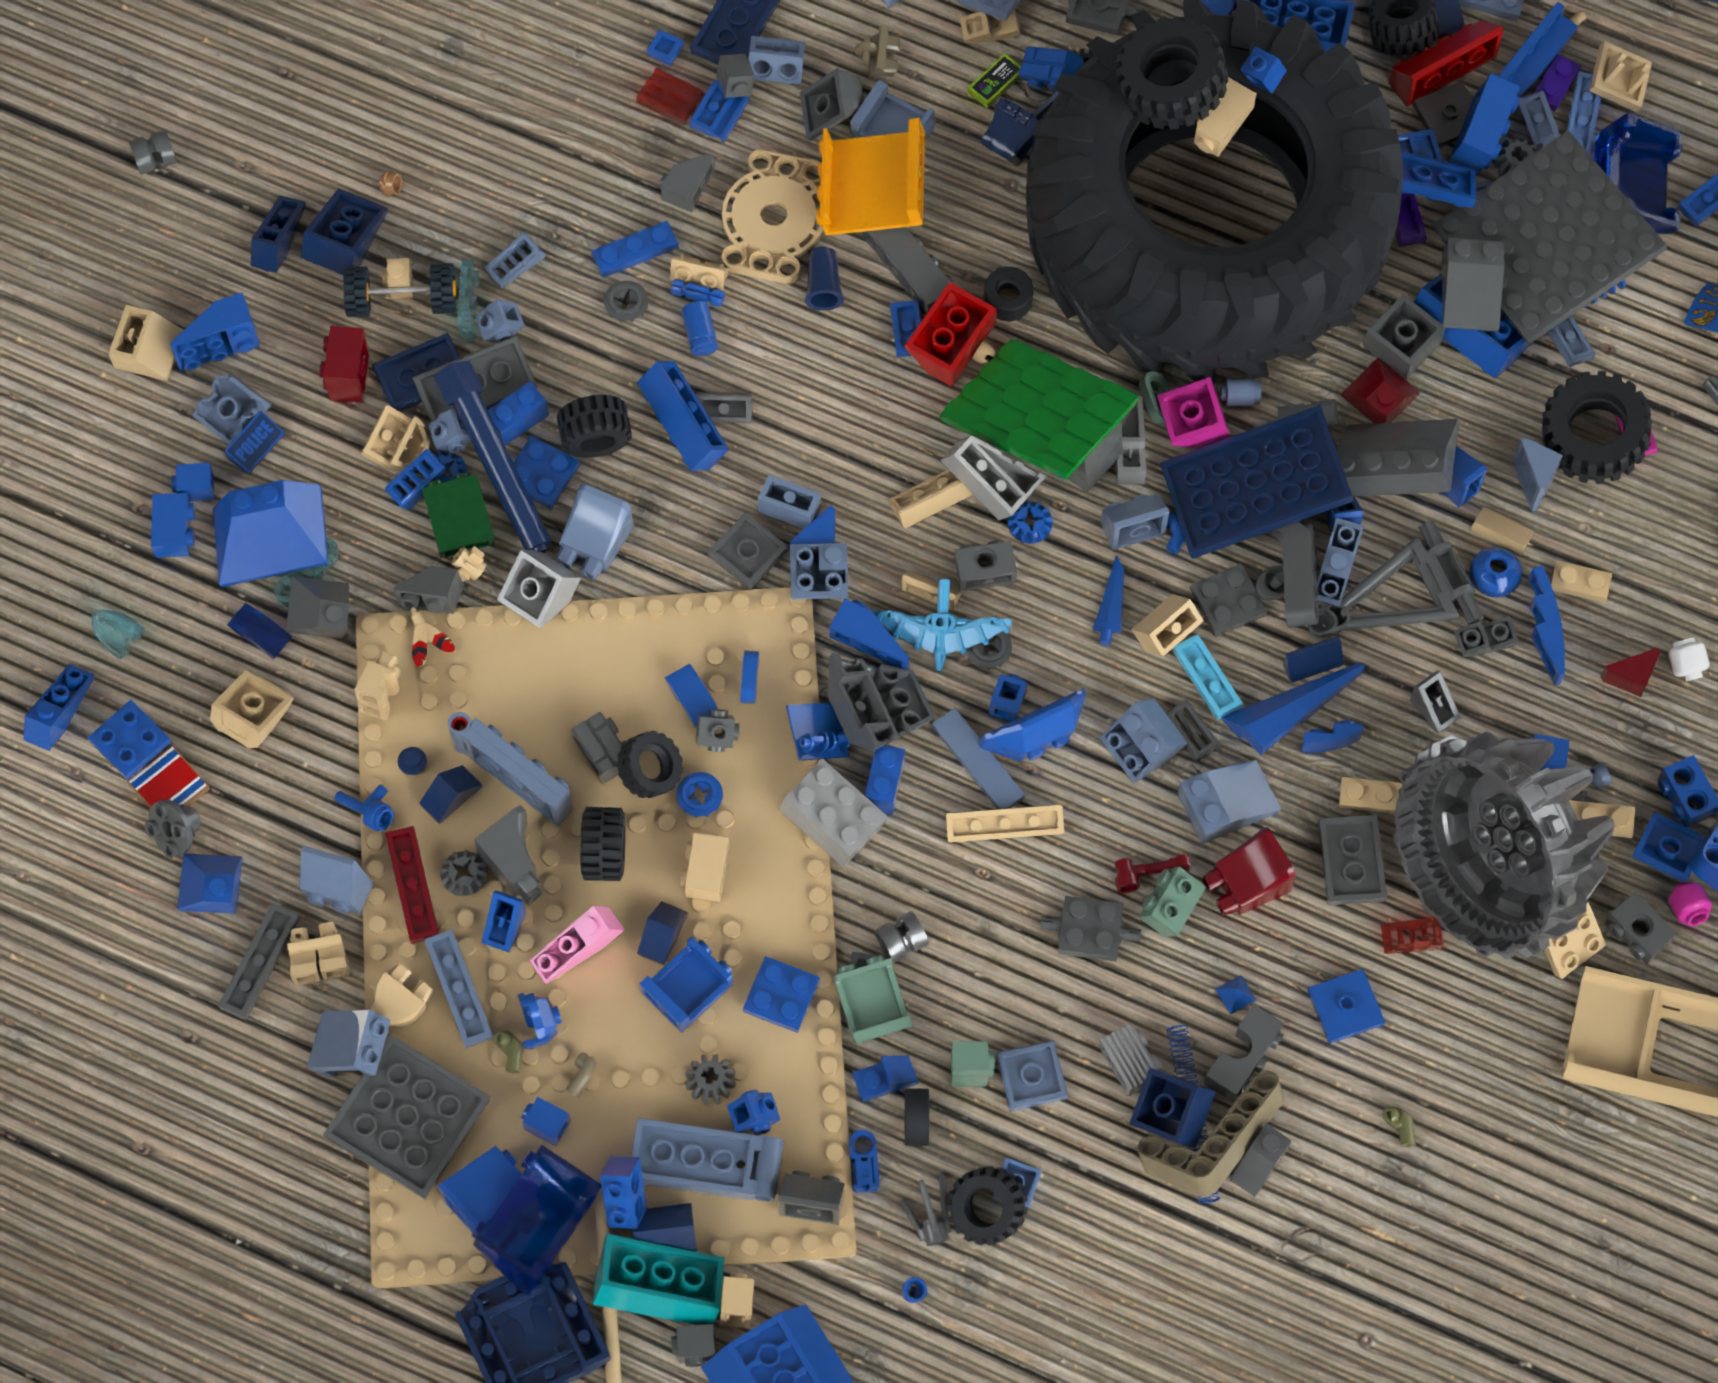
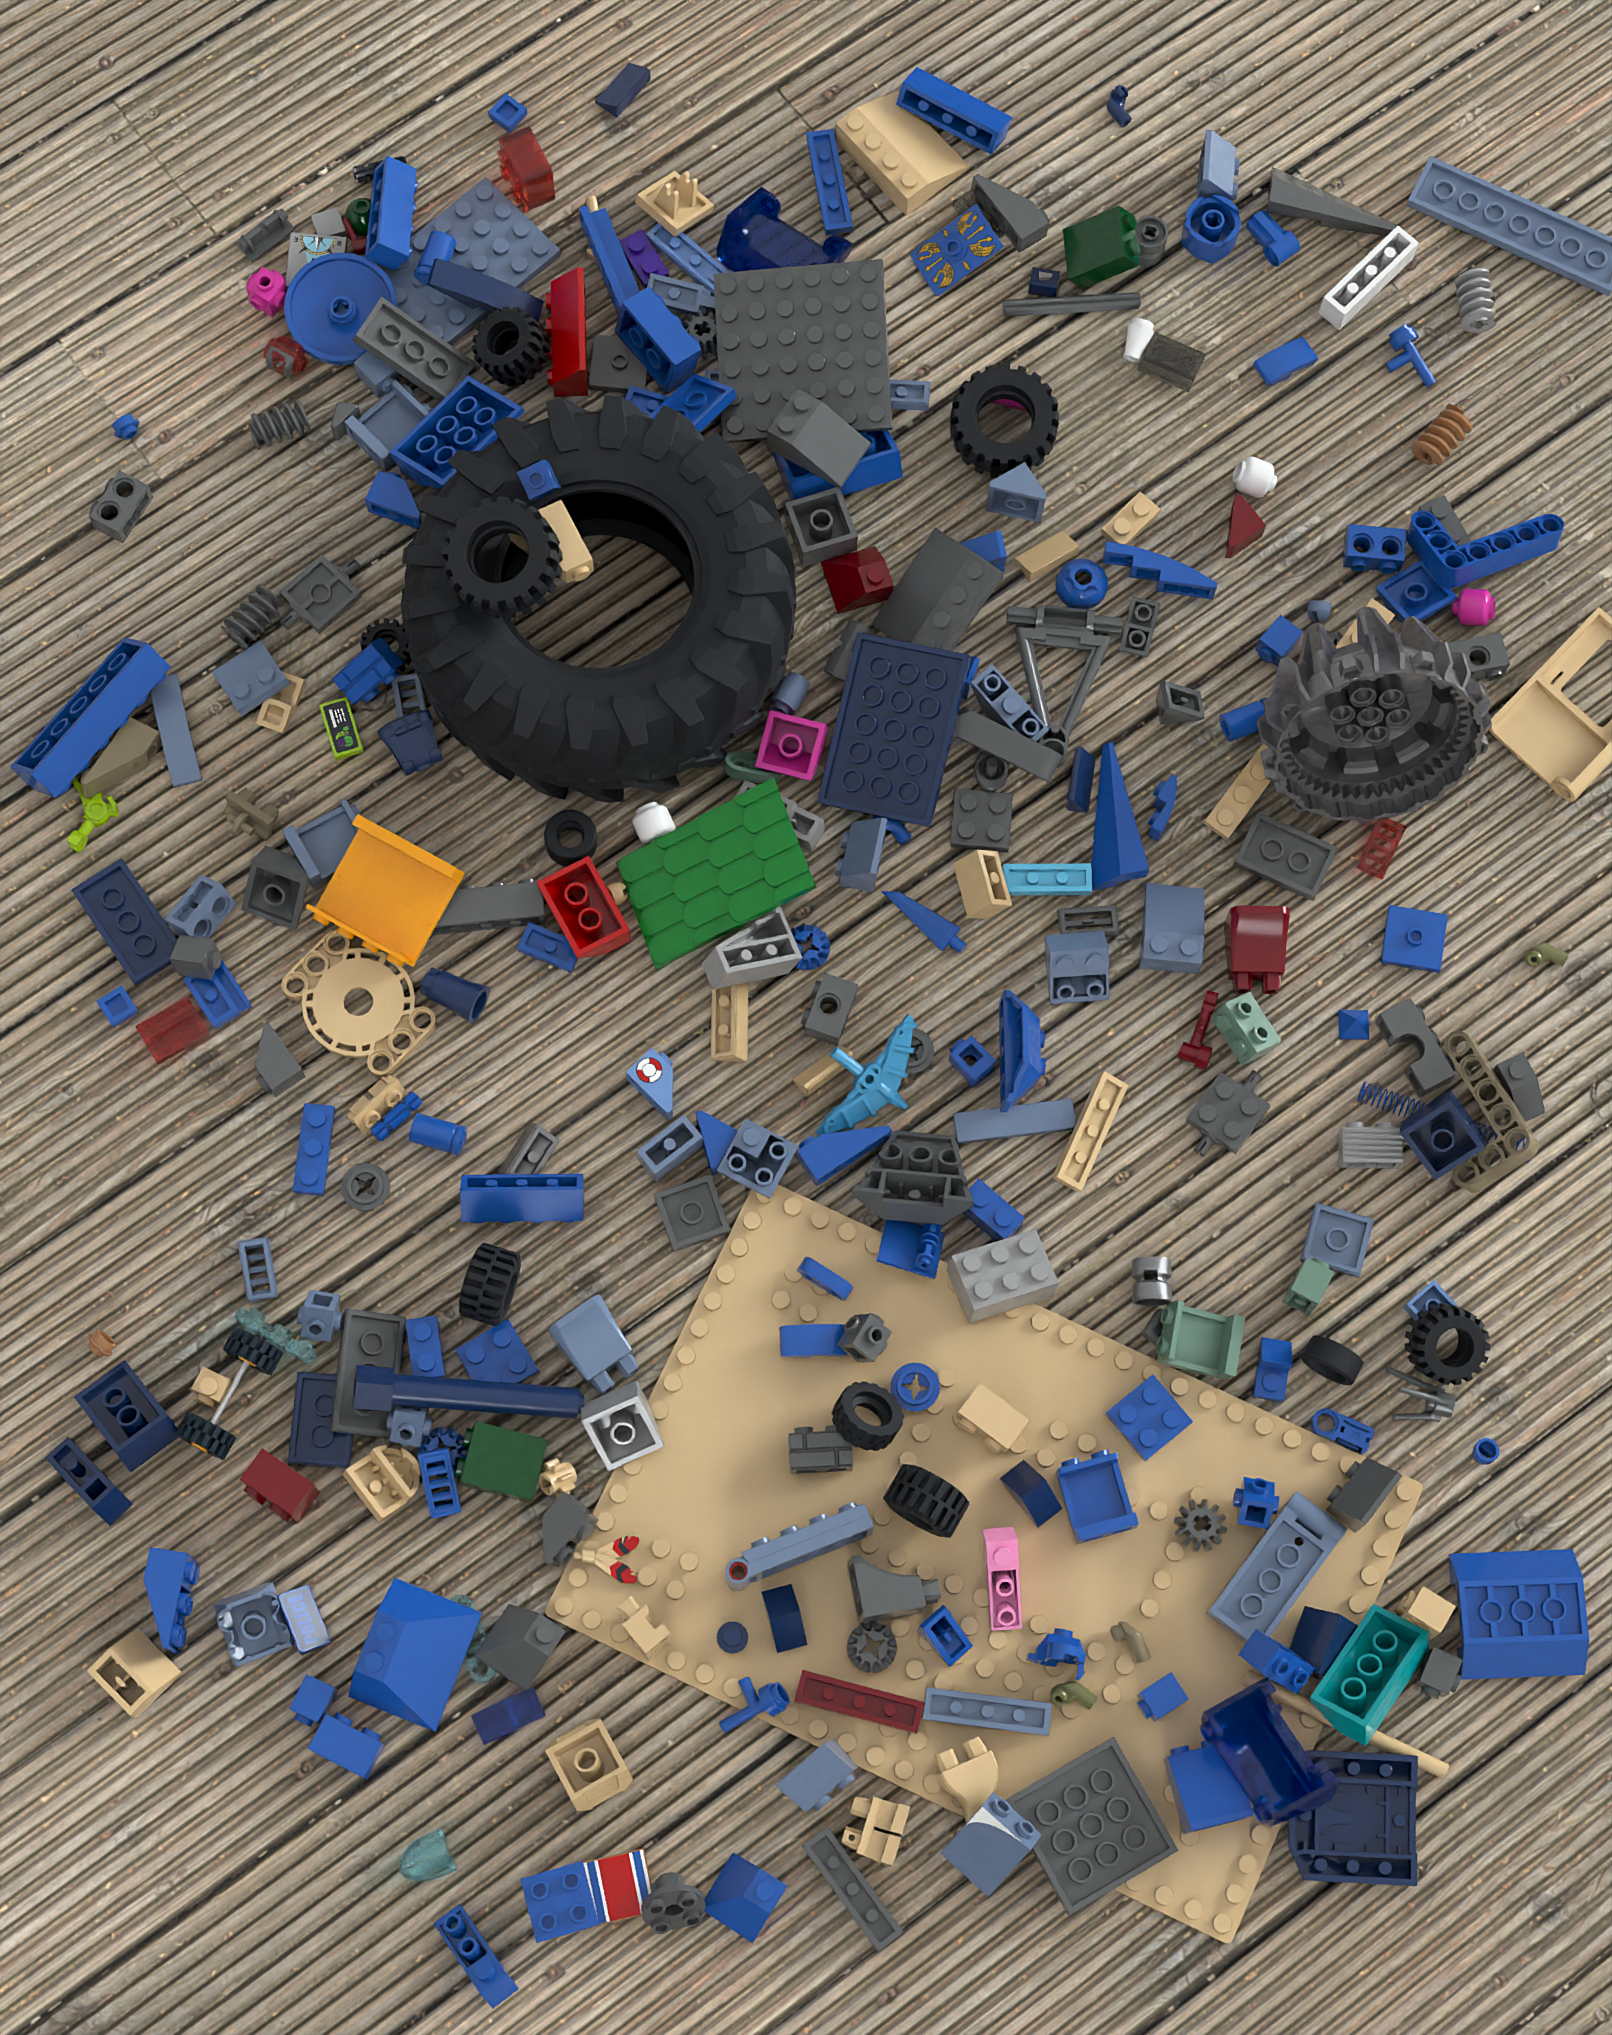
camera: 65 degrees left, 5 degrees up
(841, 465) = (654, 1080): none -> medium blue slope
(1061, 344) = (652, 822): none -> white head

